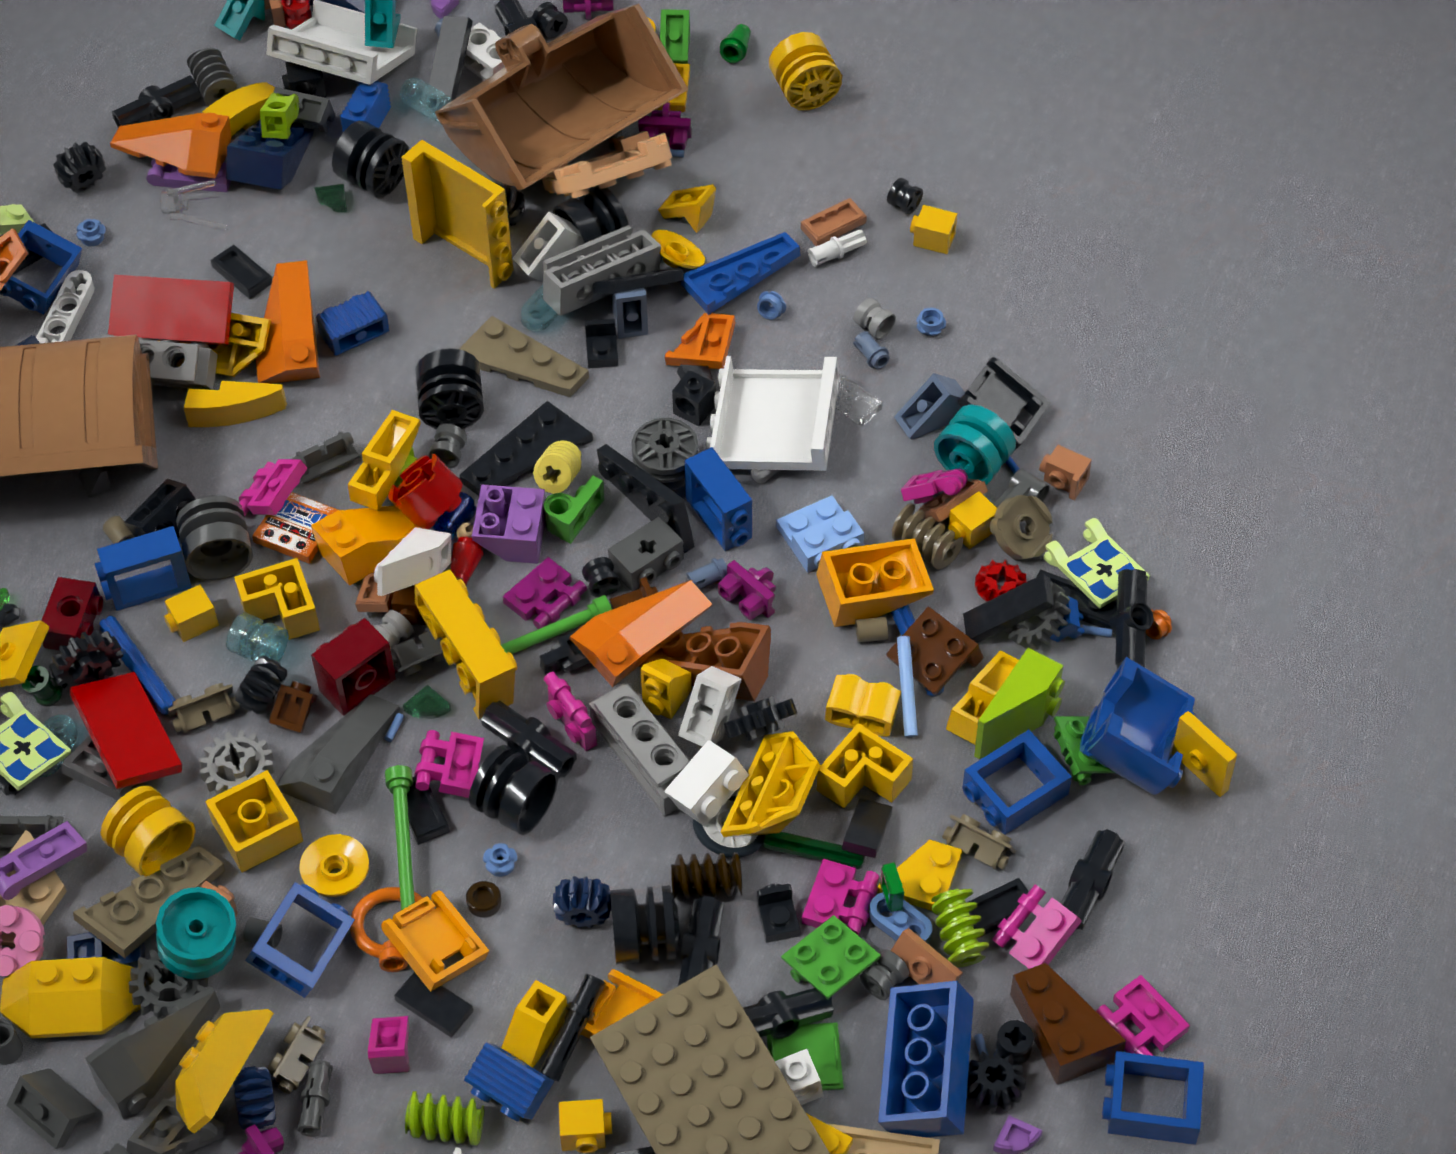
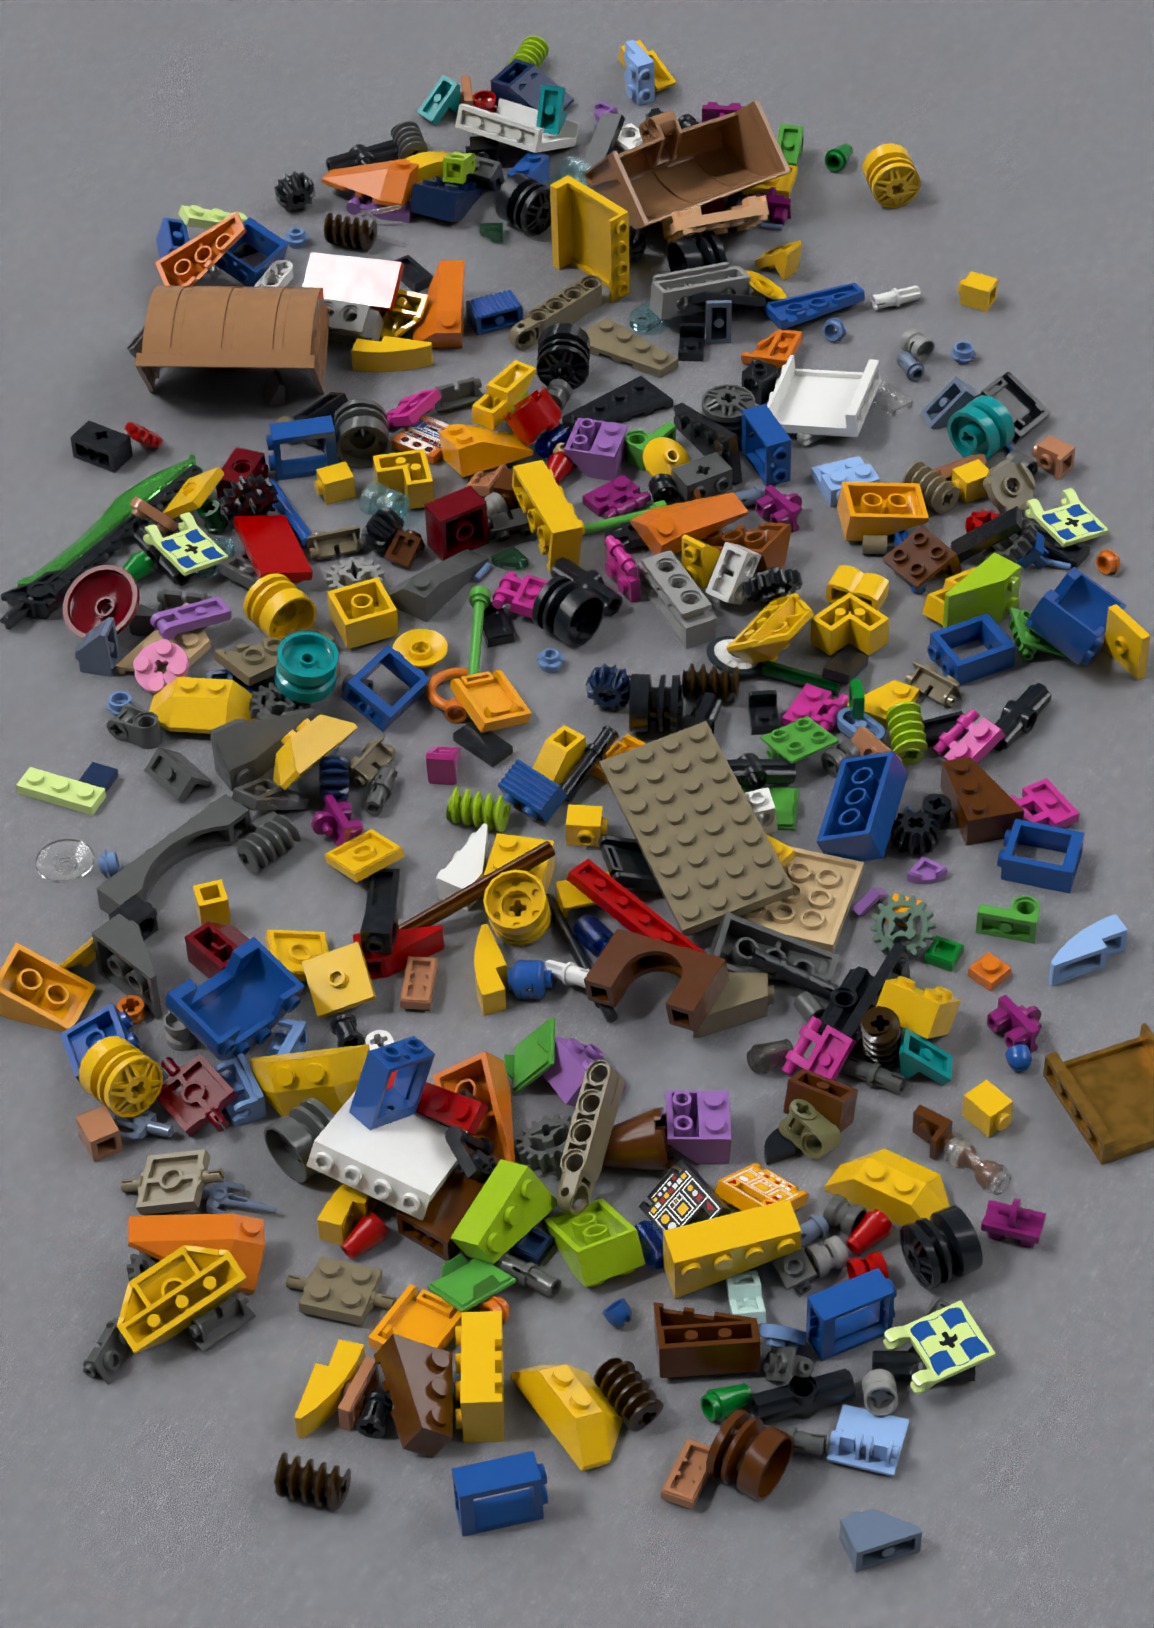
camera: 10 degrees right, 10 degrees down
(156, 221) = (350, 233): none -> dark brown piece
(413, 560) = (503, 456): white slope -> none
(431, 316) = (563, 307): none -> dark tan piece
(483, 899) = (533, 684): dark brown tile -> none
(548, 239) = (659, 262): white brick -> none
(557, 466) = (640, 413): light yellow piece -> none
(587, 533) = (657, 455): none -> yellow dish
(706, 783) = (721, 619): white brick -> none
(833, 222) = (897, 278): nougat plate -> none
(904, 196) = (957, 266): black wheel -> none
(907, 686) = (895, 578): light blue bar -> none
(924, 486) = (938, 452): dark pink plate -> none
(1132, 616) = (1088, 546): black piece -> none

